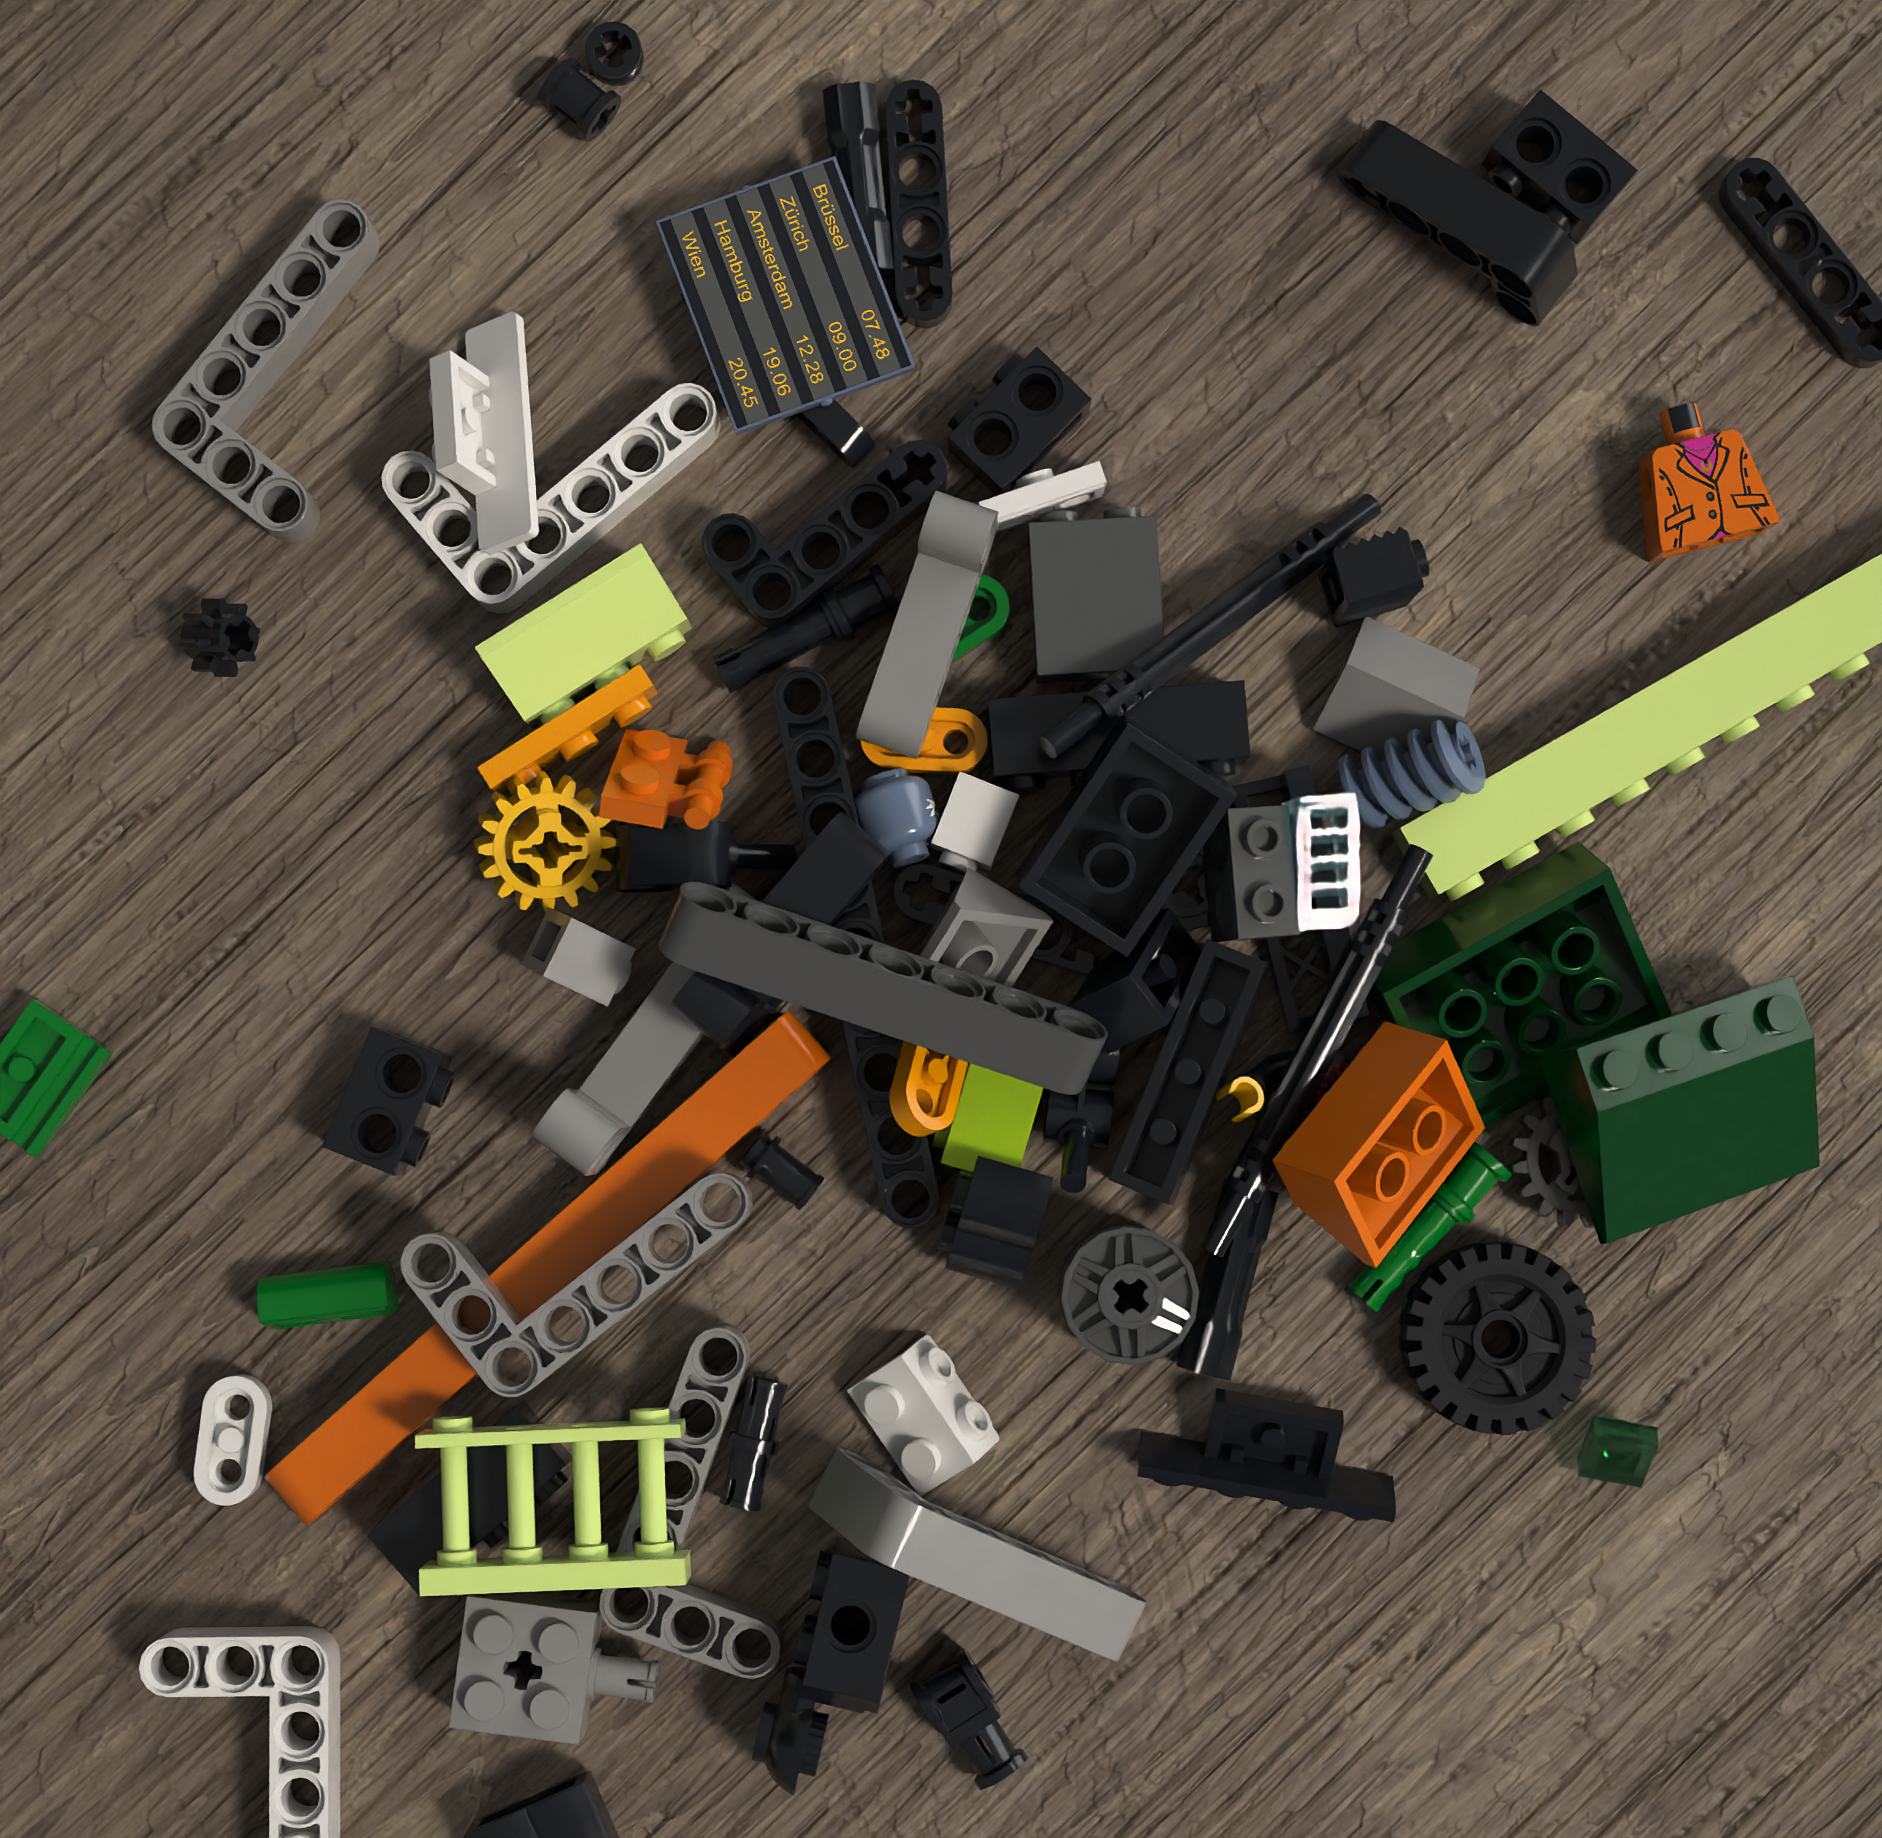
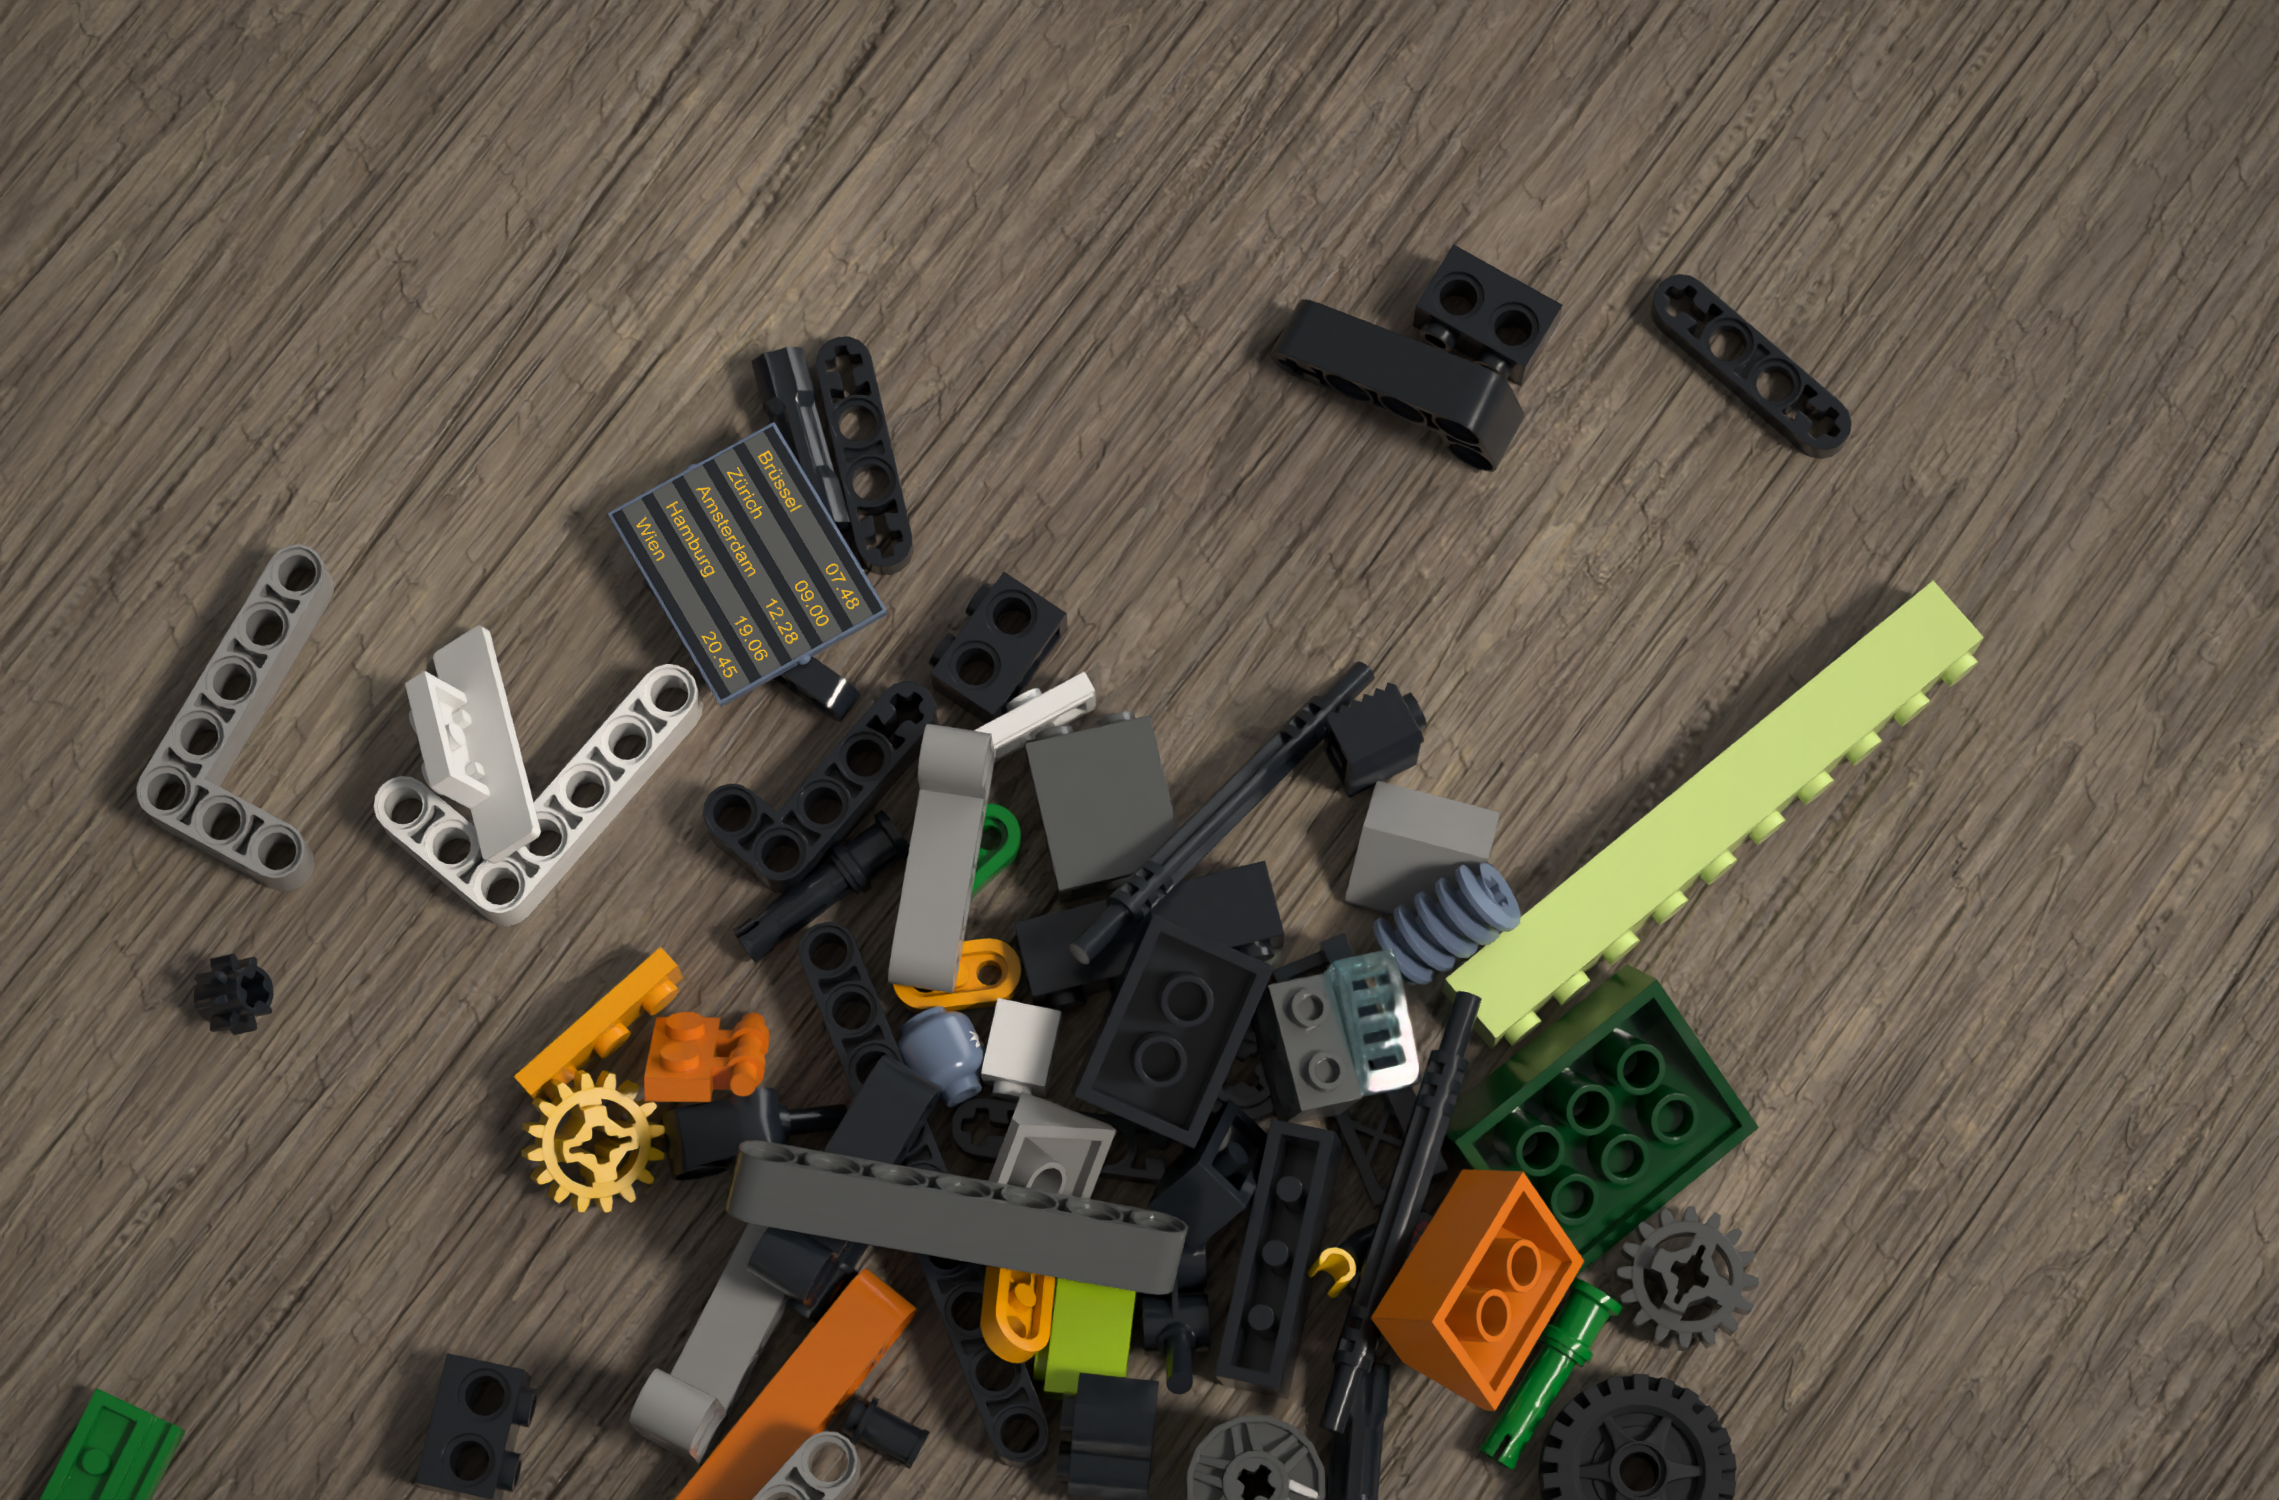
camera: 10 degrees left, 10 degrees down
(579, 99) = (511, 410): black bush -> none
(579, 957) = (646, 1249): light grey brick -> none
(586, 637) = (603, 929): yellowish green slope -> none
(596, 48) = (558, 363): black bush -> none
(1689, 1107) = (1783, 1205): dark green slope -> none
(1700, 488) = (1684, 601): orange torso -> none

